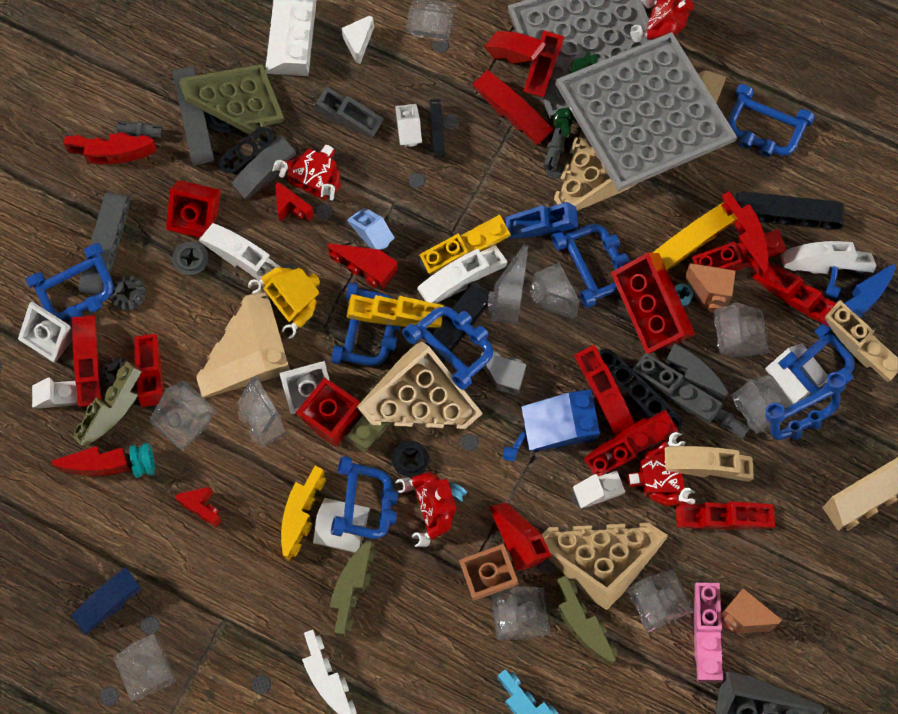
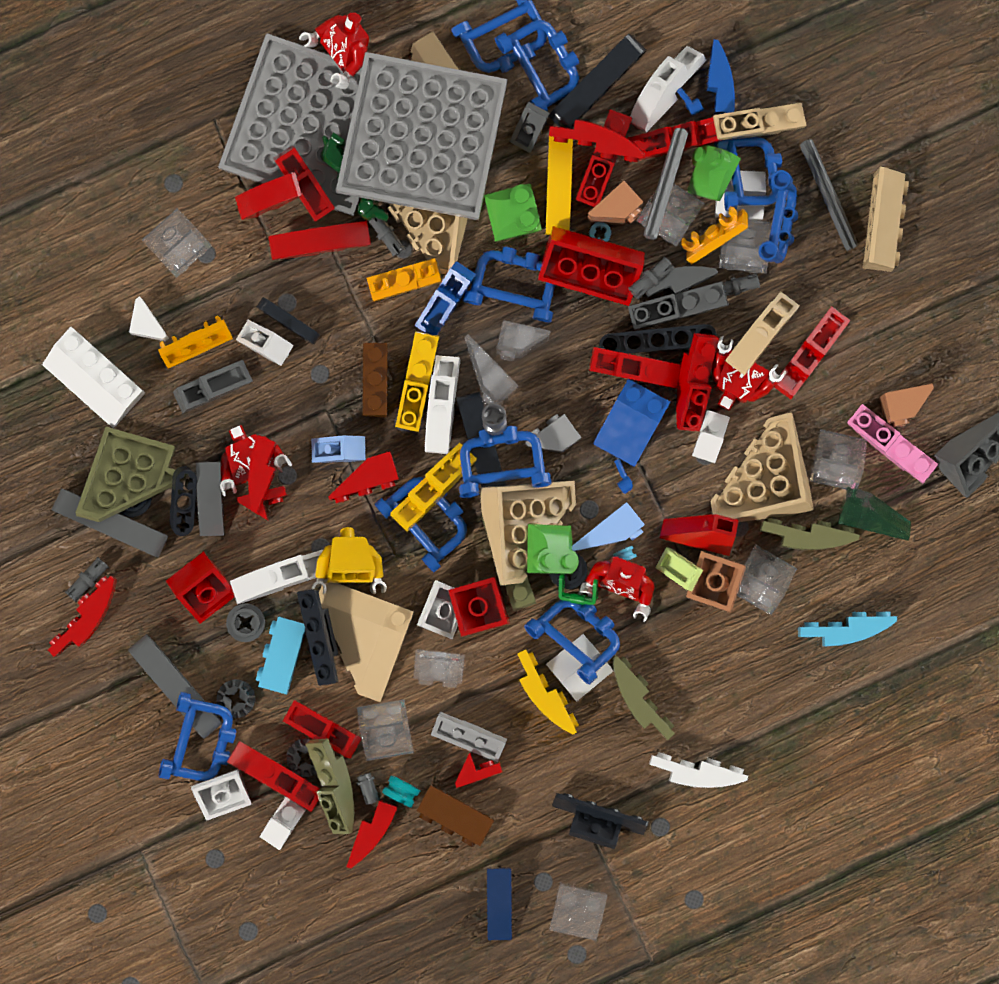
camera: 55 degrees left, 15 degrees up
(127, 435) = (368, 788): none -> dark grey pin
(152, 515) = (454, 816): none -> reddish brown brick
(184, 300) = (281, 655): none -> medium azure brick
(219, 313) = (319, 636): none -> black bracket
(222, 478) = (468, 736): none -> light grey plate
(226, 629) = (597, 823): none -> black bracket
(307, 181) = (259, 472): none -> red slope
(369, 79) = (195, 343): none -> light orange plate
(393, 481) = (577, 598): none -> green piece
(414, 429) = (550, 550): none -> bright green slope
(442, 216) = (375, 380): none -> reddish brown brick
(470, 469) = (614, 529): none -> light blue slope
(476, 539) = (679, 569): none -> yellowish green tile
(480, 310) = (494, 413): none -> flat silver wheel
(532, 184) = (404, 279): none -> light orange plate
(639, 656) = (869, 513): none -> clear green slope
(645, 223) = (513, 212): none -> bright green slope
(680, 348) = (651, 278): none -> dark grey pin
(713, 187) = (529, 127): none -> dark grey slope
(753, 371) = (715, 235): none -> light orange plate
(758, 304) = (665, 183): none -> axle
(794, 160) = (557, 42): none -> blue bar
(798, 334) = (712, 172): none -> bright green slope
(854, 438) = (829, 194): none -> dark grey axle

